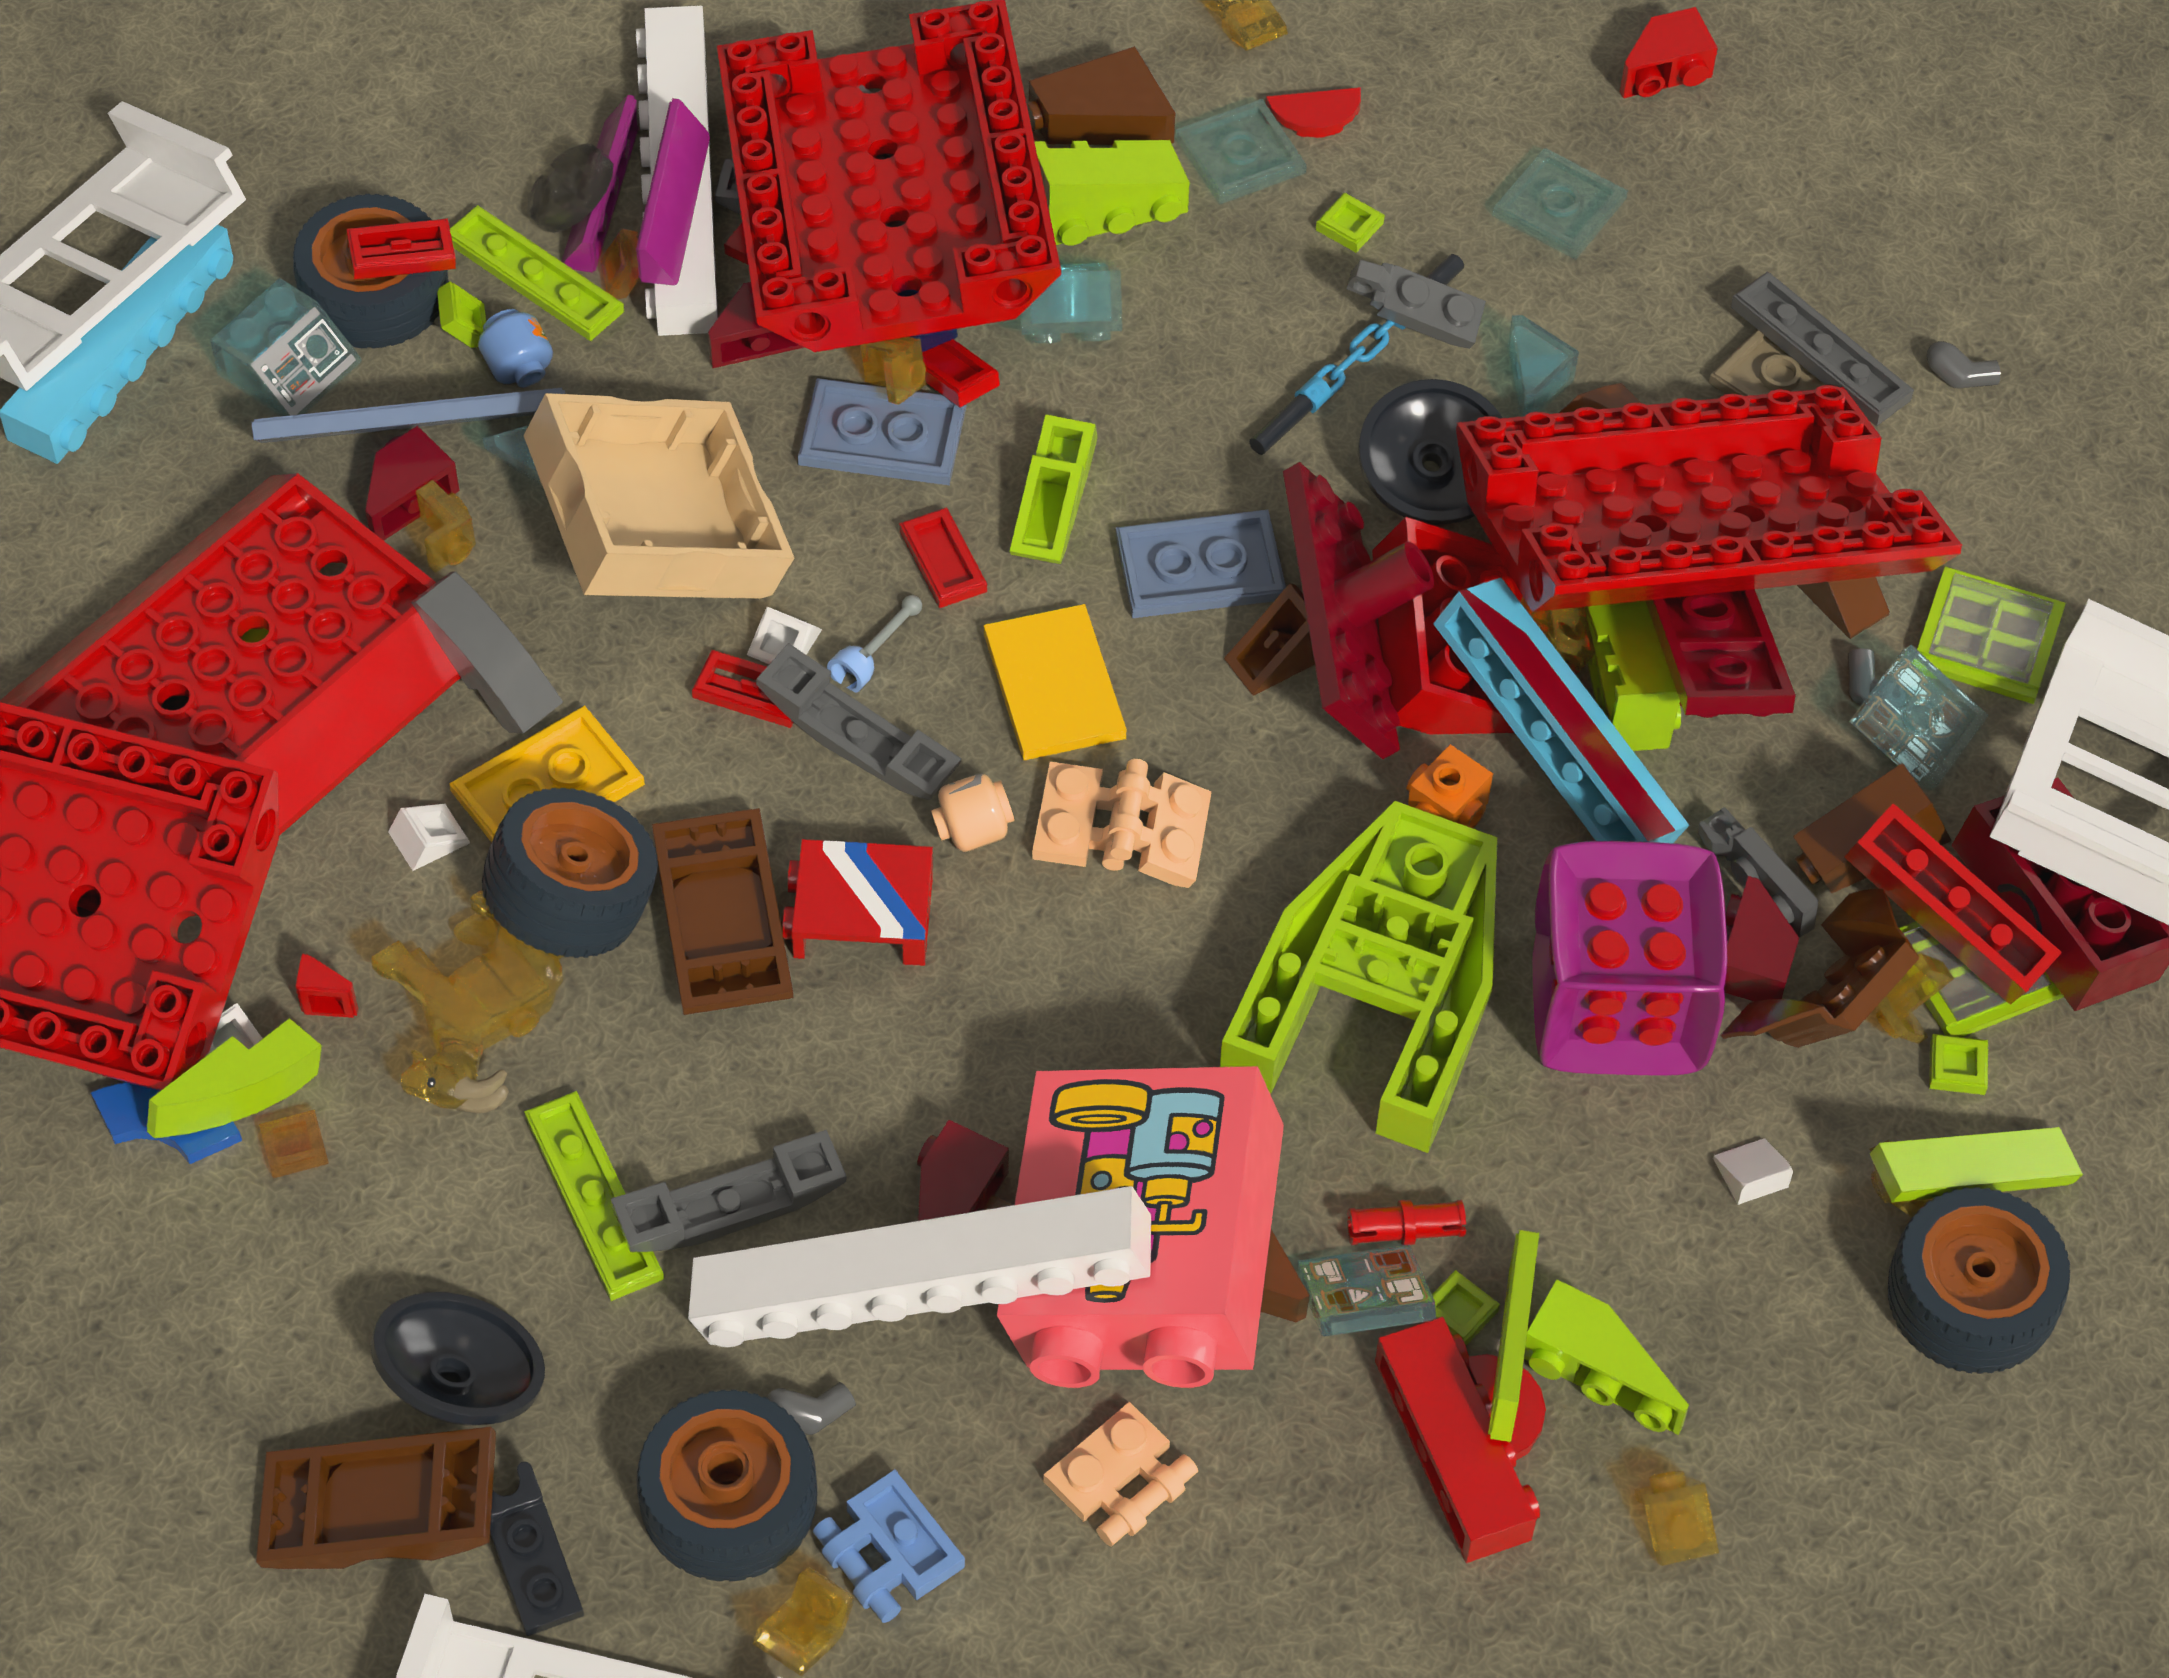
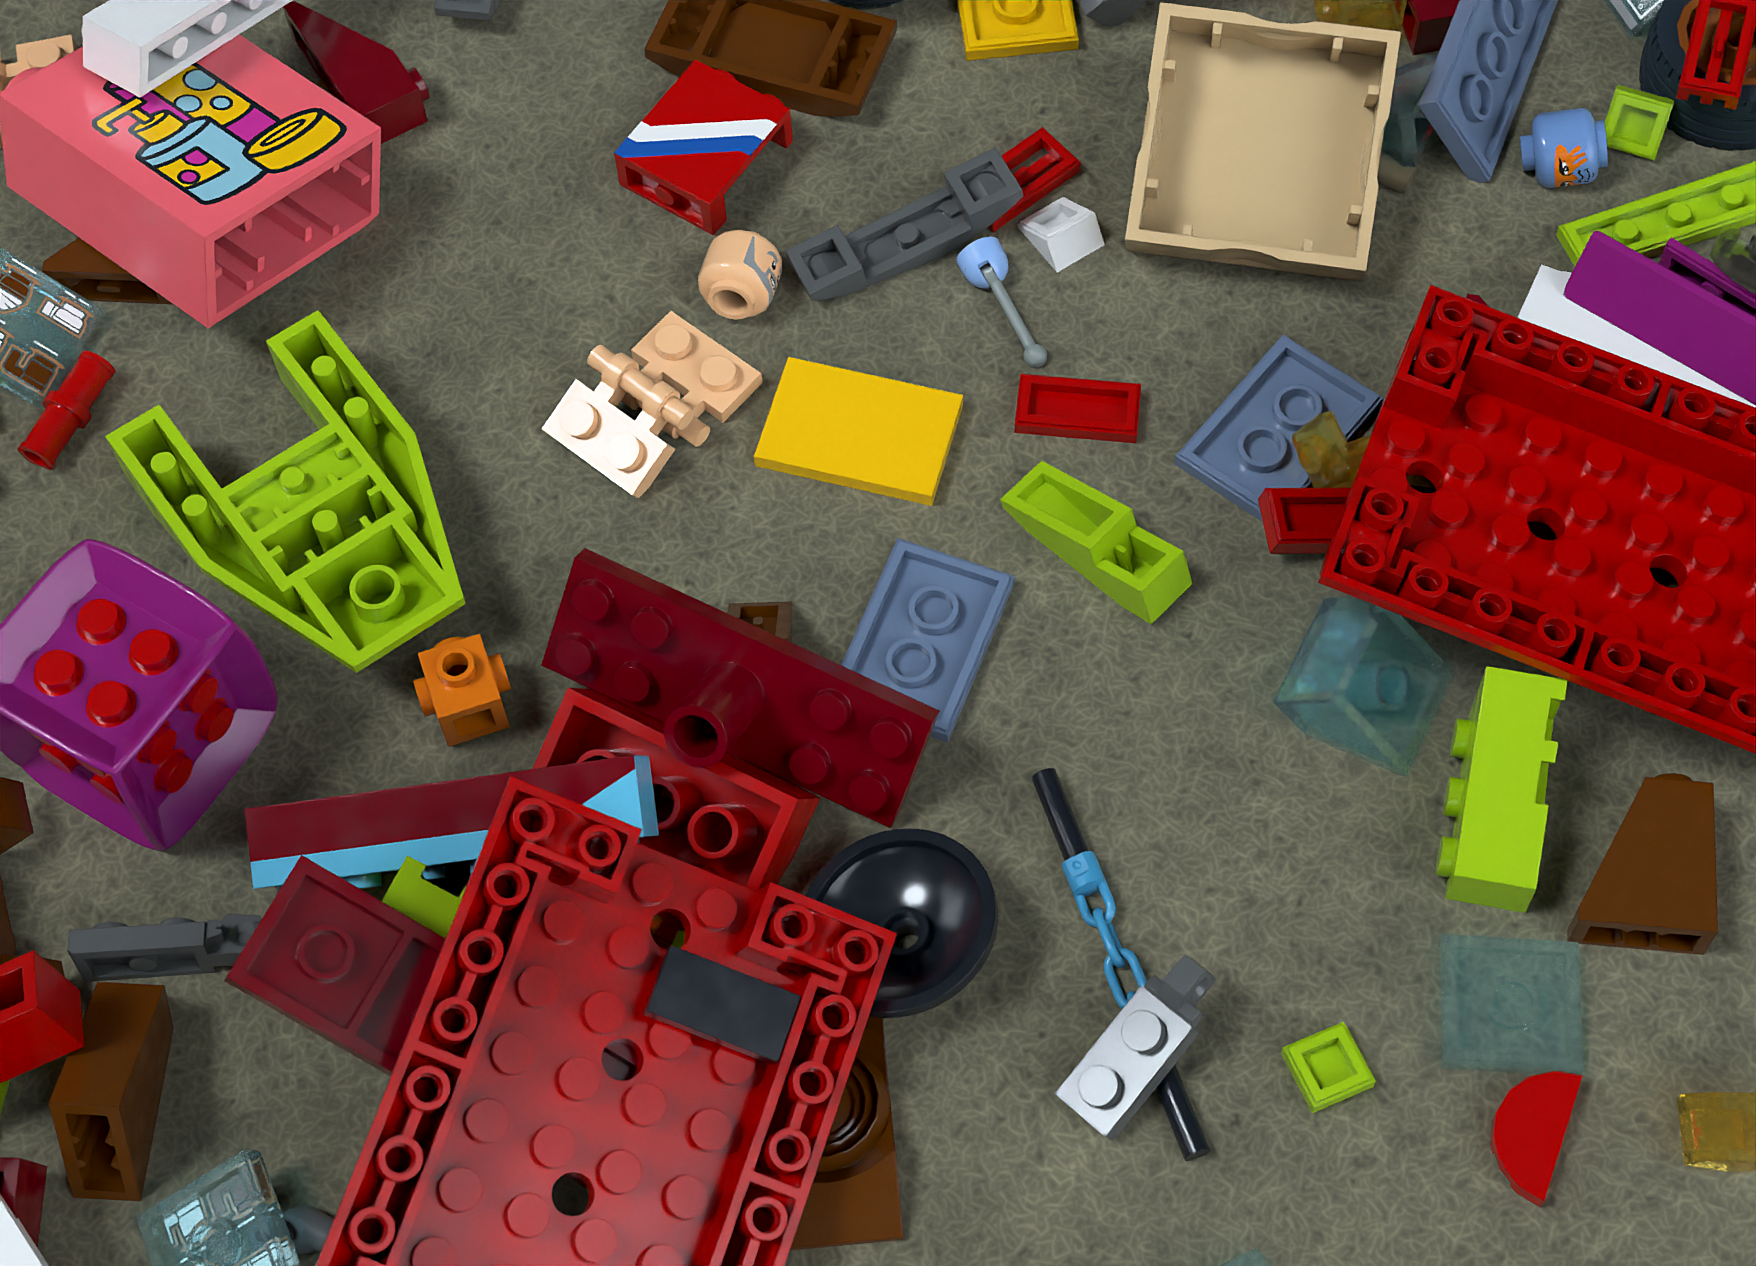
camera: 125 degrees right, 5 degrees up
(1539, 364) = (970, 1133): clear light blue slope -> none
(1580, 479) = (721, 1005): none -> black tile
(1758, 946) = (81, 880): dark red slope -> none

